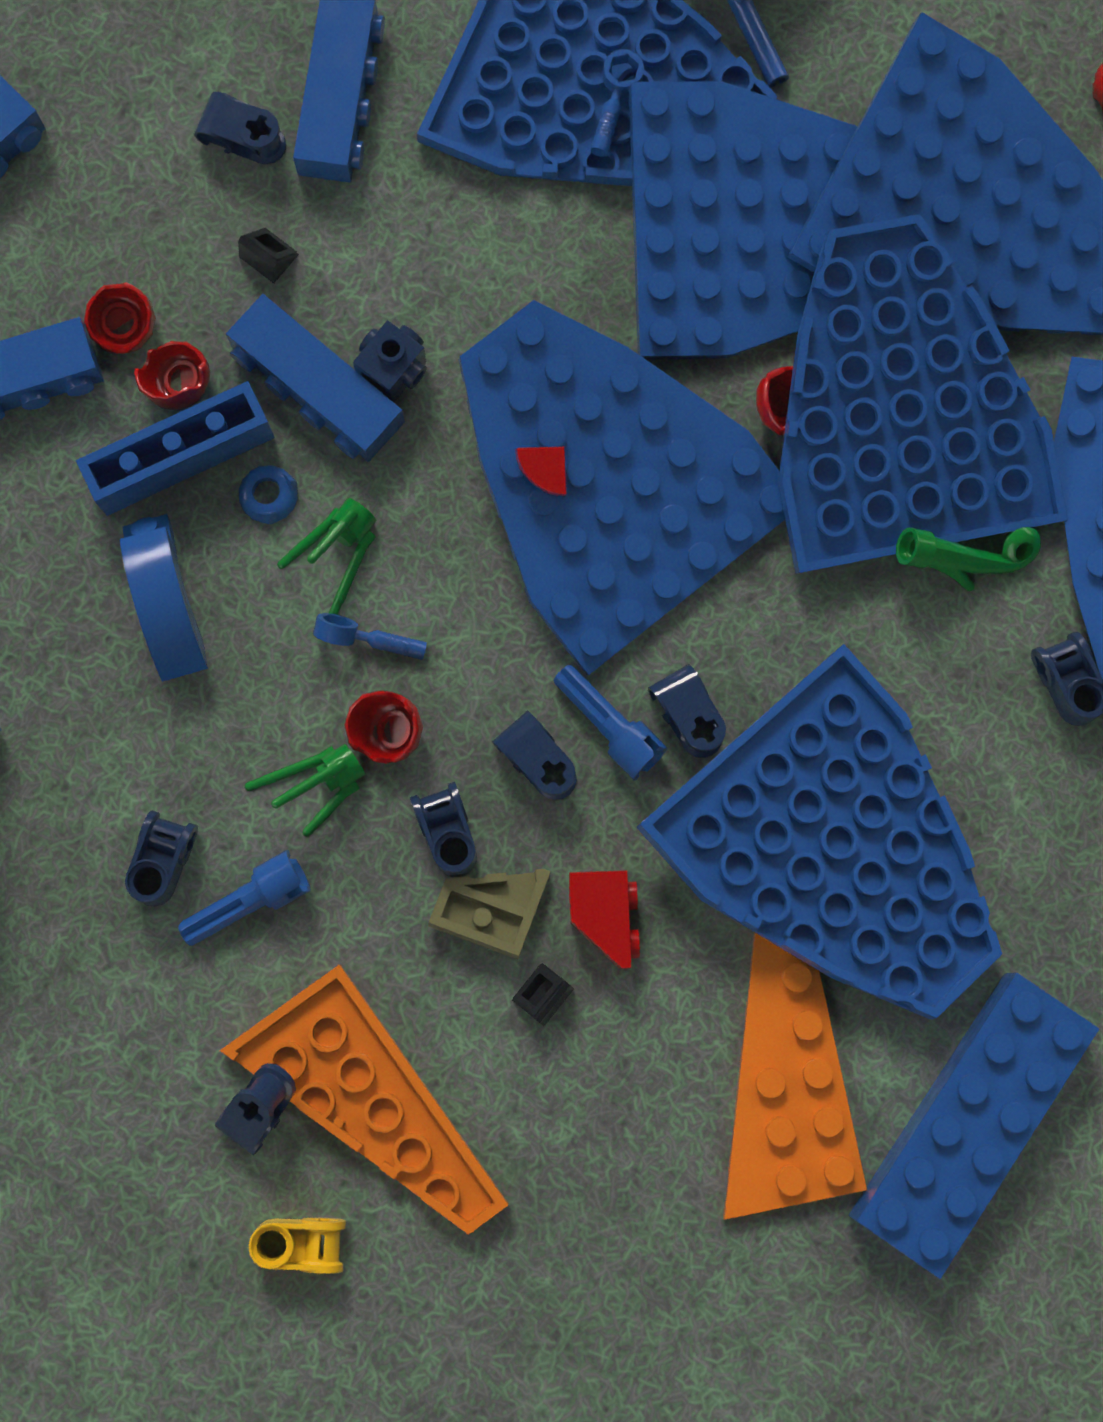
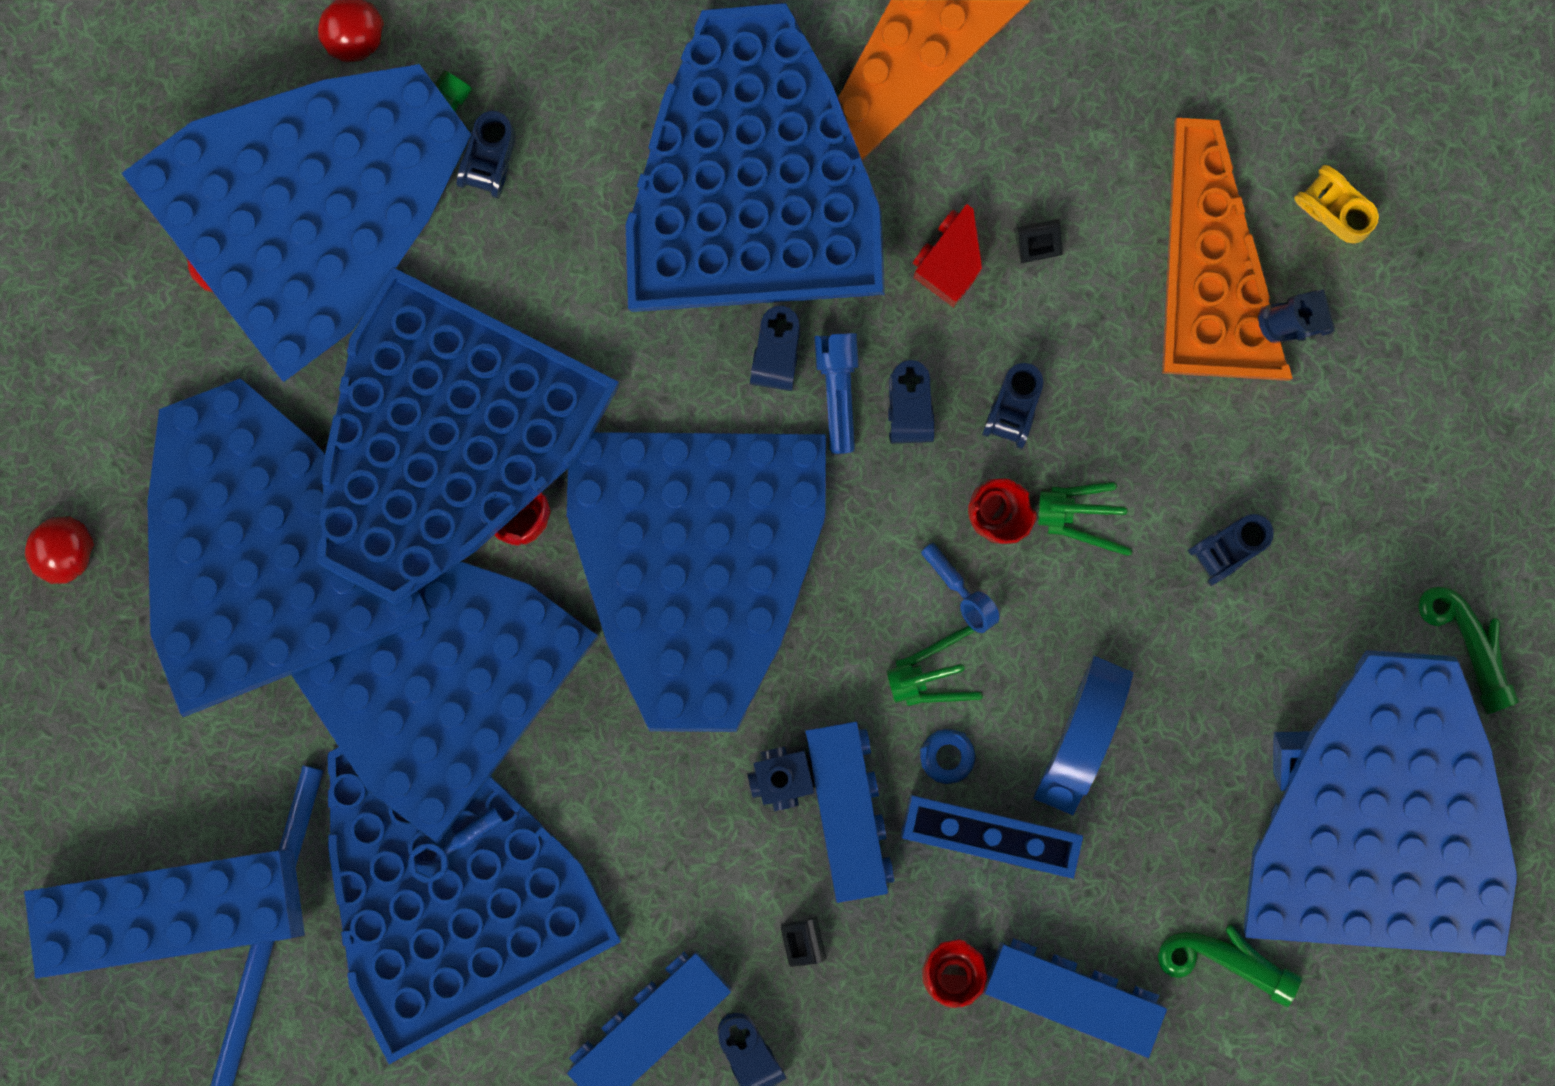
camera: 135 degrees left, 5 degrees up
(155, 375) = (966, 903): red hair -> none
(272, 885) = (1166, 464): blue piece -> none
(490, 909) = (1027, 325): olive wing -> none
(544, 468) = (742, 597): red tile -> none
(923, 550) = (519, 325): green plant -> none

